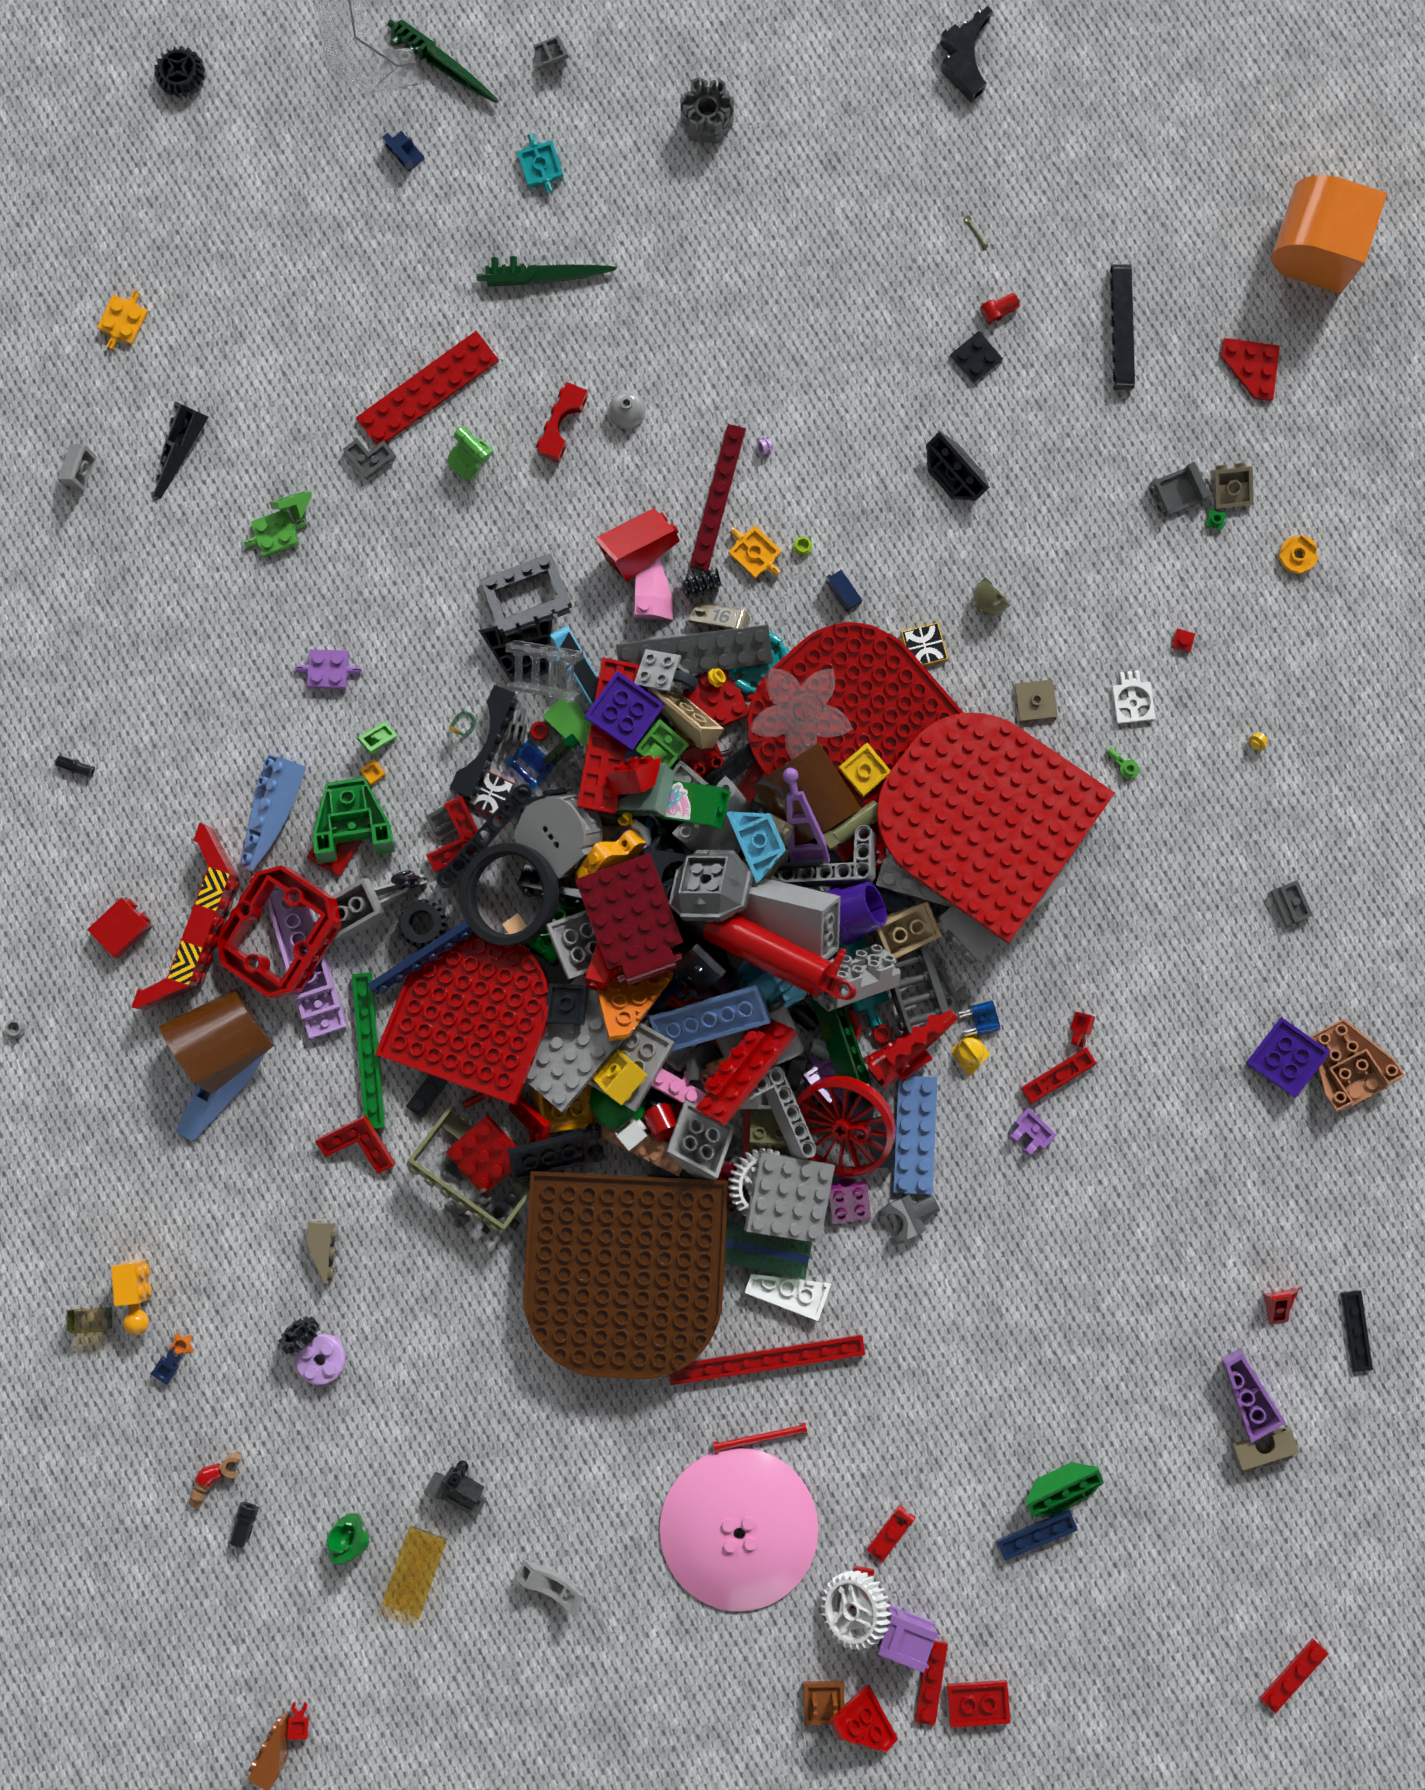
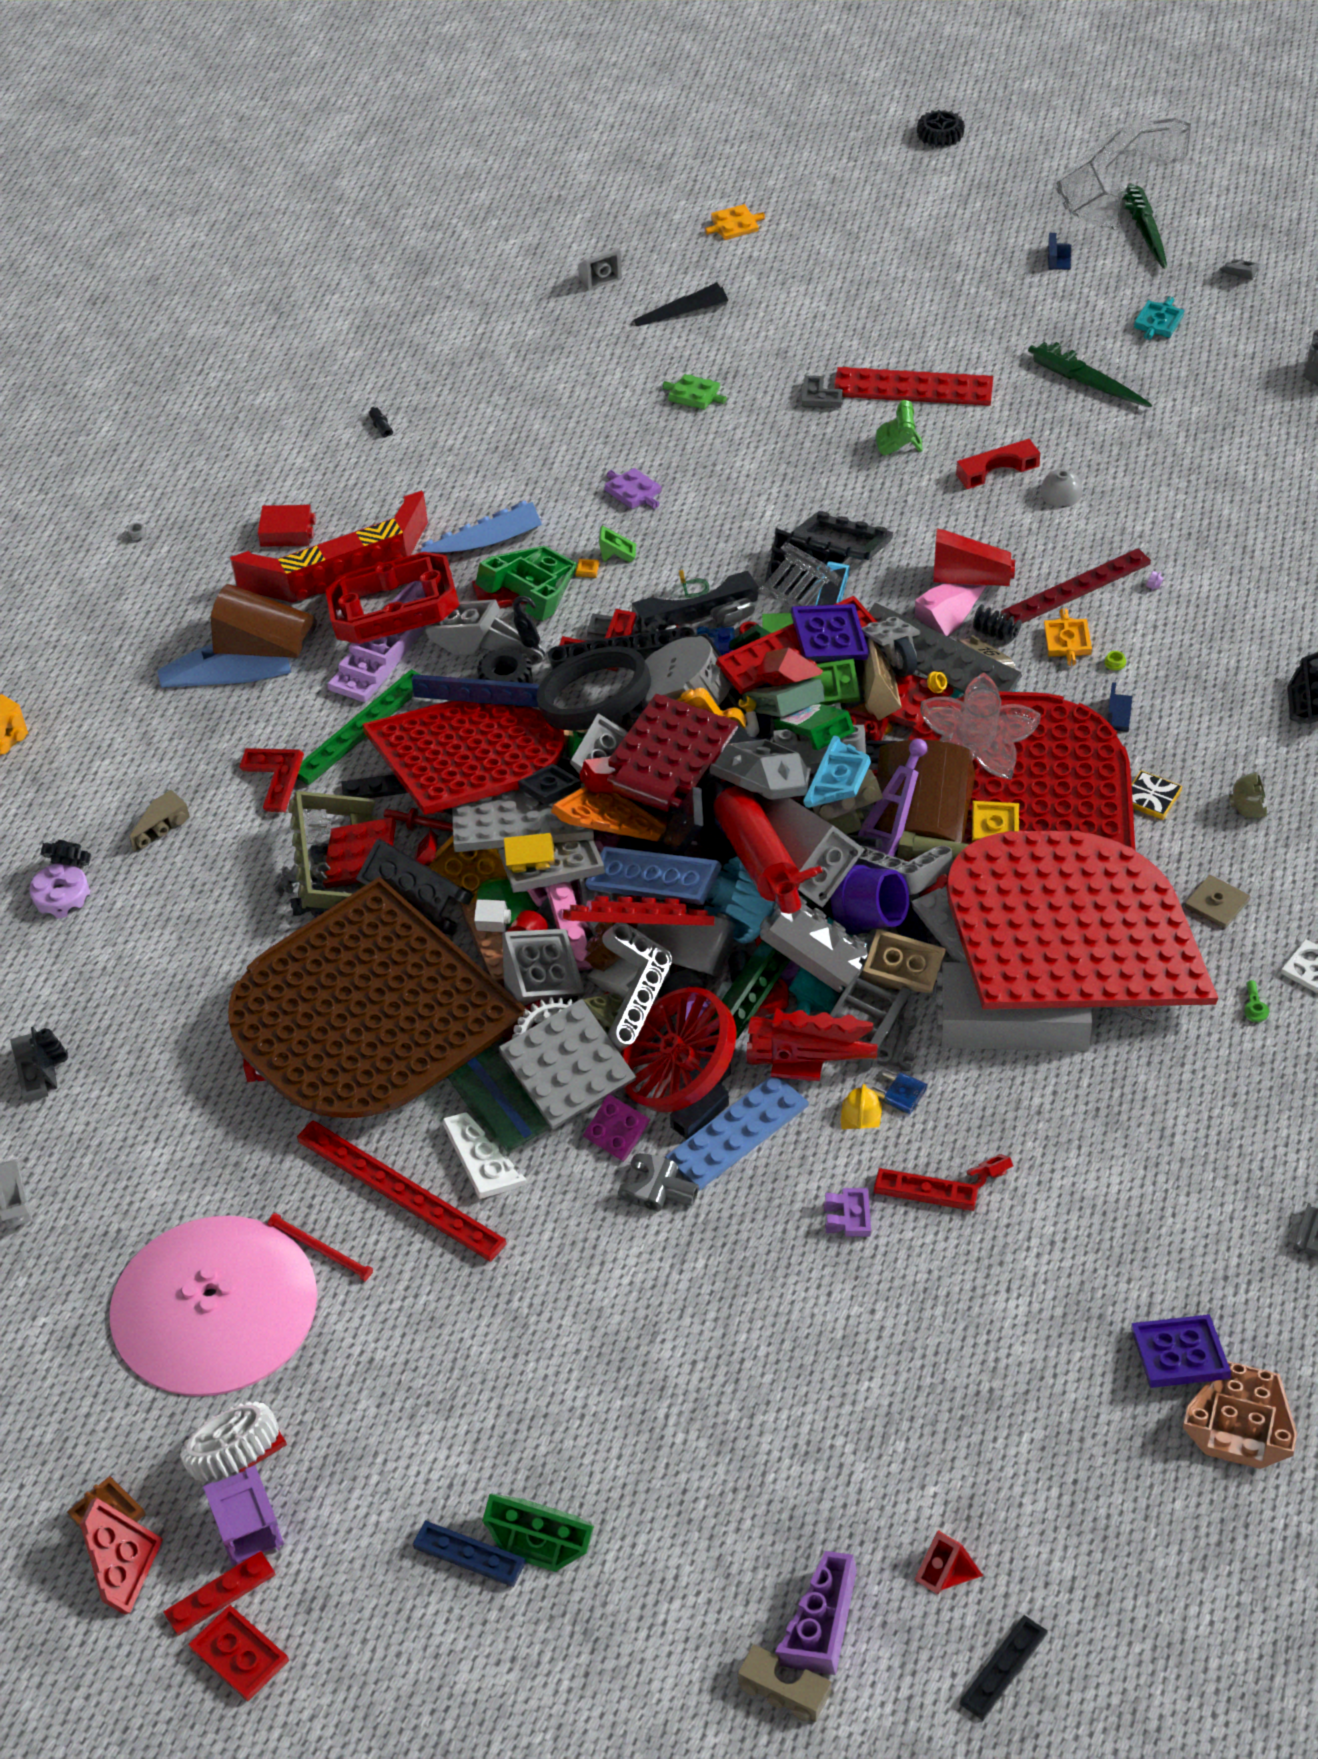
camera: 50 degrees right, 35 degrees down
(295, 503) = (732, 380): bright green slope -> none
(890, 1533) = (337, 1428): red plate -> none

